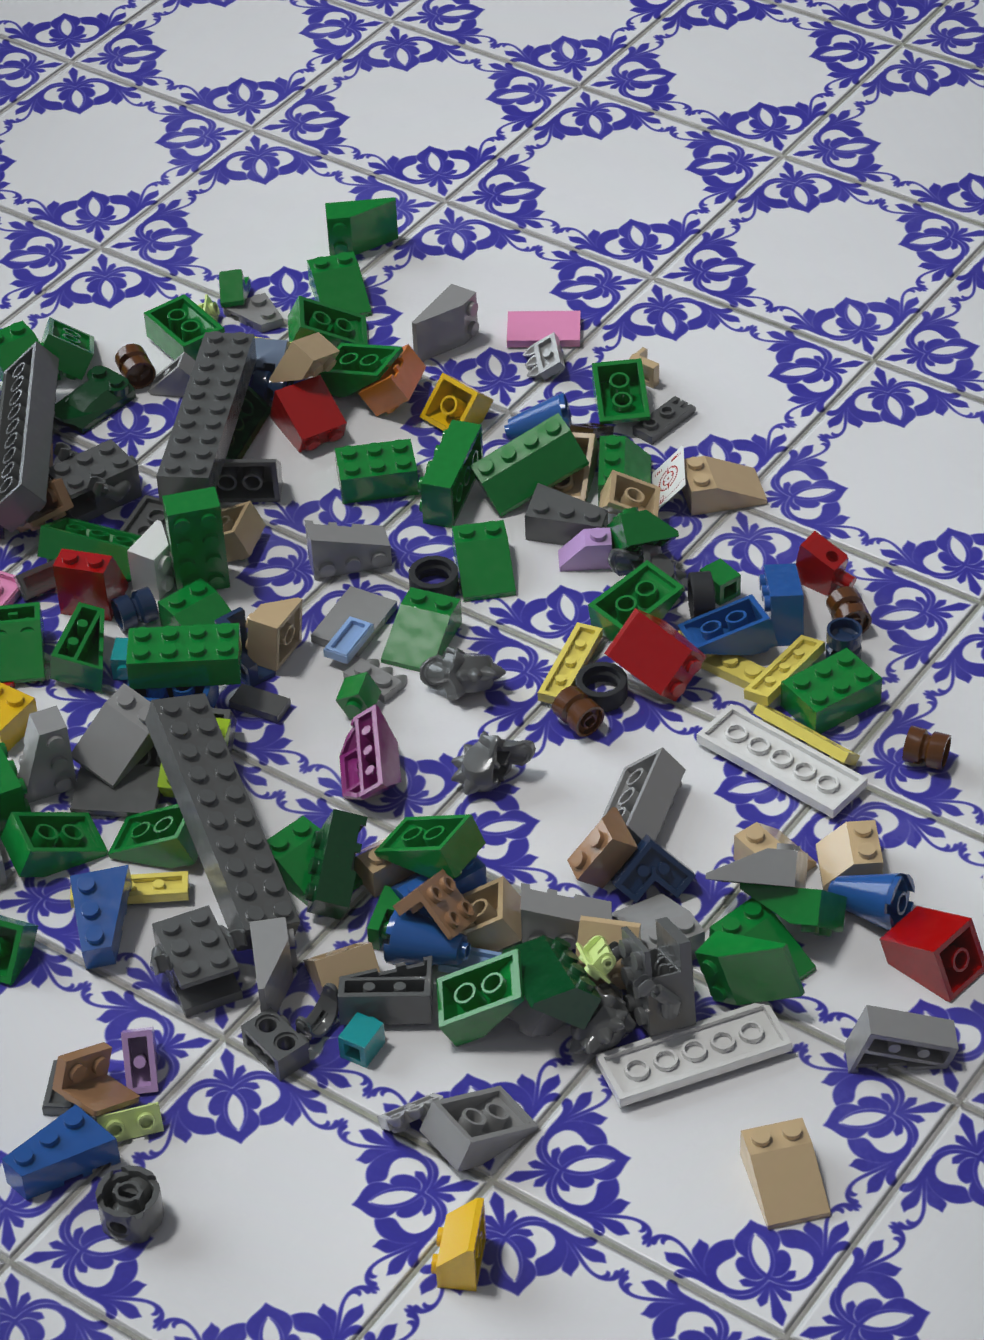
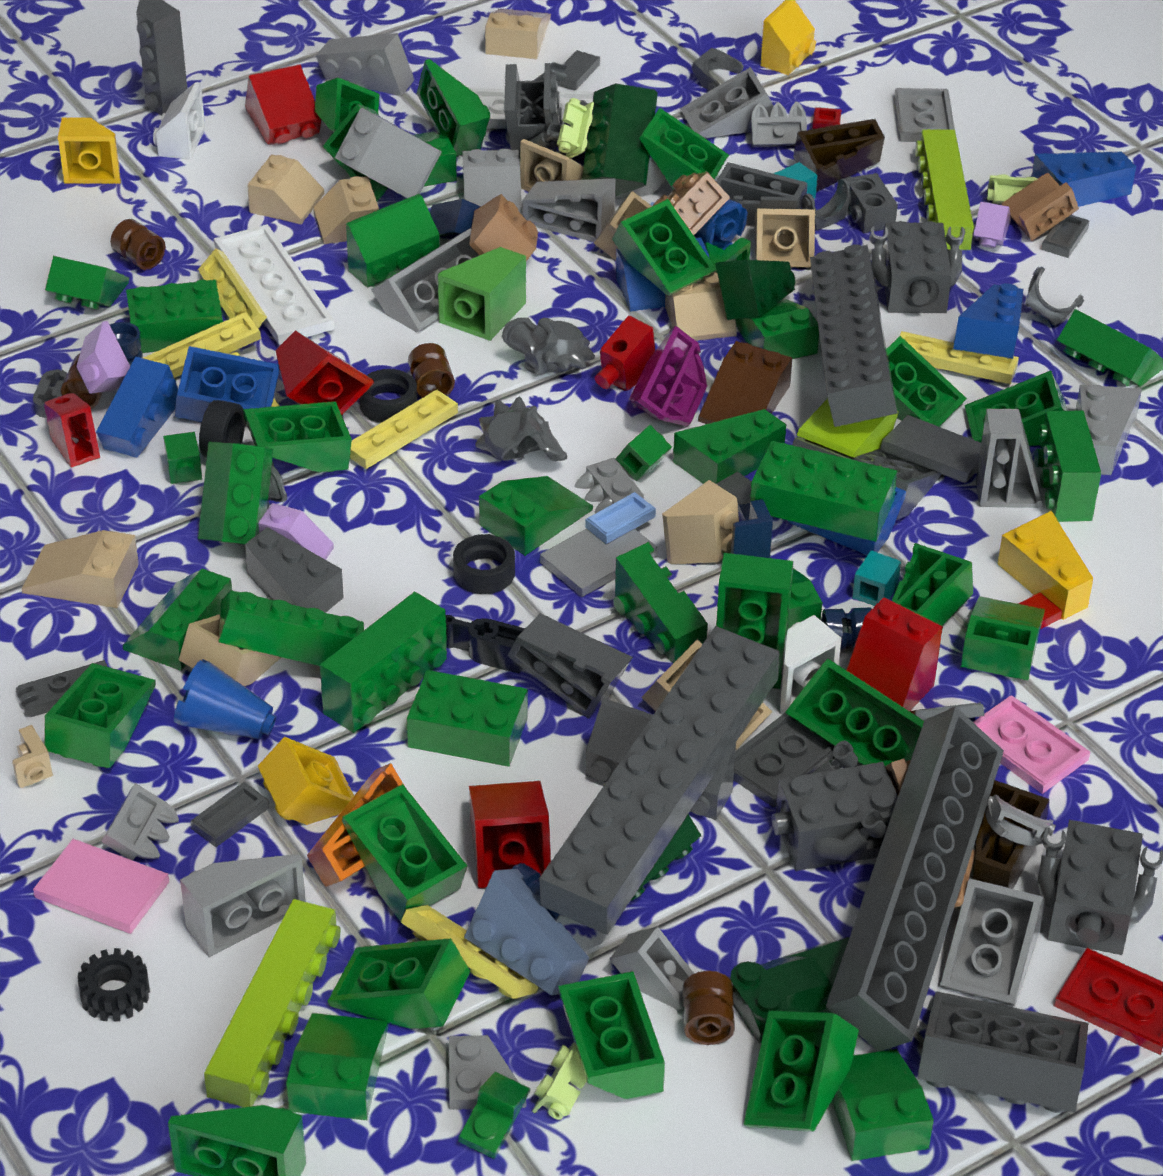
camera: 160 degrees left, 0 degrees up
(45, 979) = (1038, 304): none -> dark grey helmet
(116, 737) = (914, 450): light grey slope -> none
(130, 1204) = (1034, 128): dark grey brick -> none
(205, 1093) = (944, 183): none -> lime brick
(267, 1215) = (922, 110): none -> light grey tile
(273, 960) = (852, 222): light grey slope -> none
(283, 577) = (655, 605): none -> green wedge
(289, 724) = (727, 445): none -> green wedge
(302, 791) = (747, 383): none -> reddish brown slope
(305, 359) = (489, 830): tan slope -> none
(319, 502) = (569, 662): none -> dark grey wedge
(333, 1088) = (839, 150): none -> dark brown wedge
(346, 549) = (582, 607): light grey wedge -> none
(372, 1166) = (826, 117): none -> red tile
(392, 298) = (272, 1004): none -> lime brick
(400, 523) = (485, 640): none -> black piece
(419, 766) = (626, 354): none -> red torso
(483, 560) = (411, 565): green slope -> none
(493, 284) = (117, 1001): none -> black tyre
(499, 384) = (229, 814): none -> dark grey tile
(536, 1201) = (713, 60): none -> dark grey helmet
(580, 785) = (483, 292): none -> bright green slope
(594, 428) = (173, 673): dark brown plate -> none
(628, 492) = (214, 543): tan slope -> none
(670, 476) = (138, 580): white sticker -> none
(682, 1141) = (579, 68): none -> dark grey tile
(700, 819) = (390, 240): none -> green slope
(830, 595) = (102, 360): none -> lavender slope
(858, 950) = (339, 97): none -> green slope
(876, 897) = (295, 139): blue cone -> none
(879, 606) = (48, 389): none -> dark grey beam
(938, 702) = (84, 282): none -> green slope

